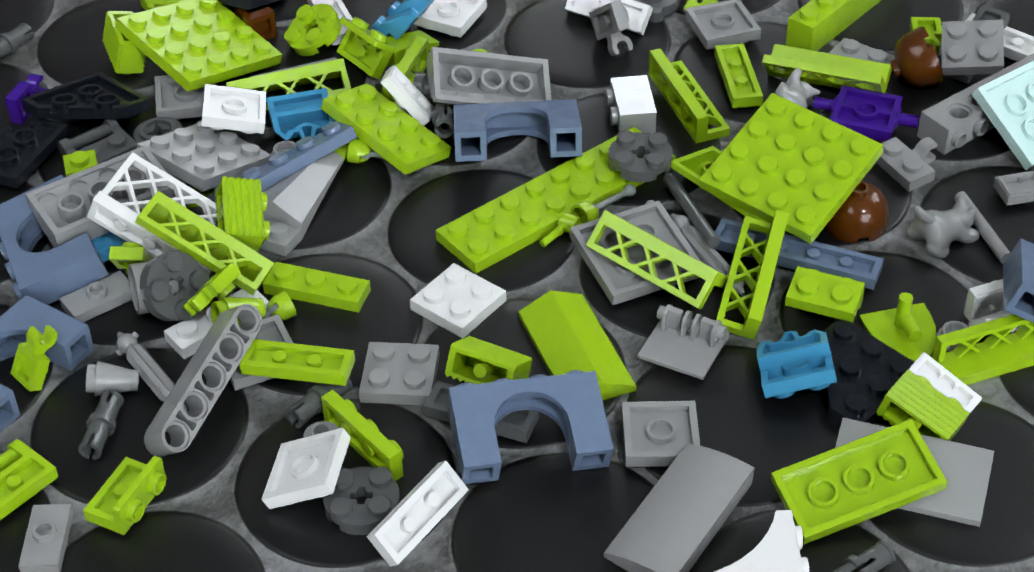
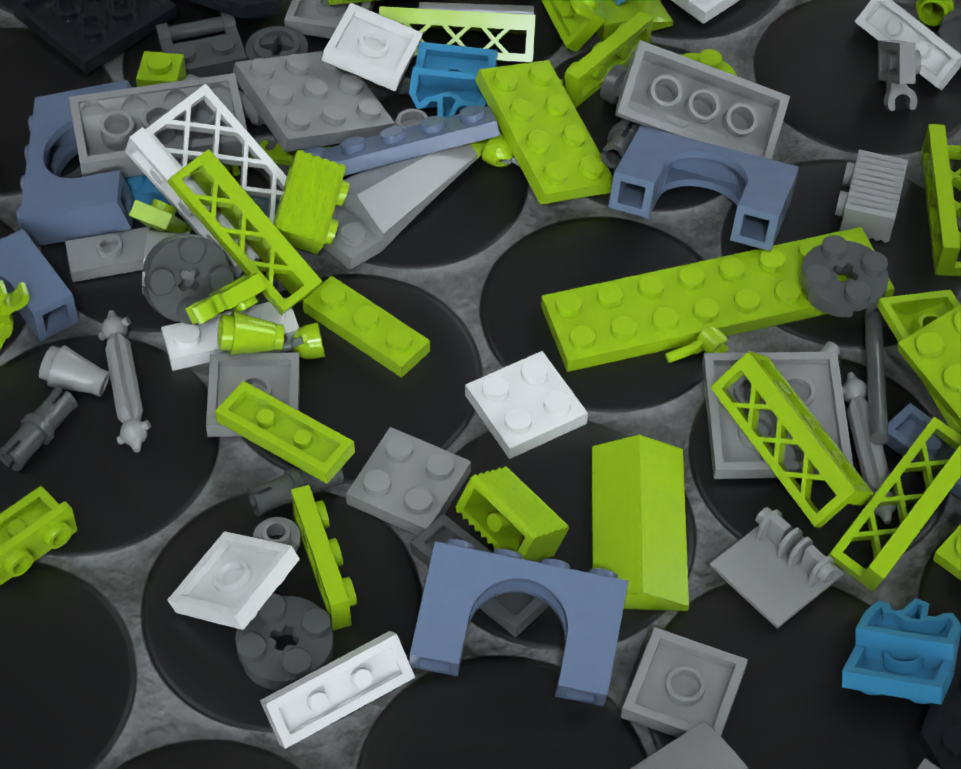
camera: 20 degrees right, 10 degrees up
(190, 386) = (145, 419): light grey beam -> none
(407, 95) = (589, 93): white plate -> none
(588, 211) = (743, 333): hinge -> none

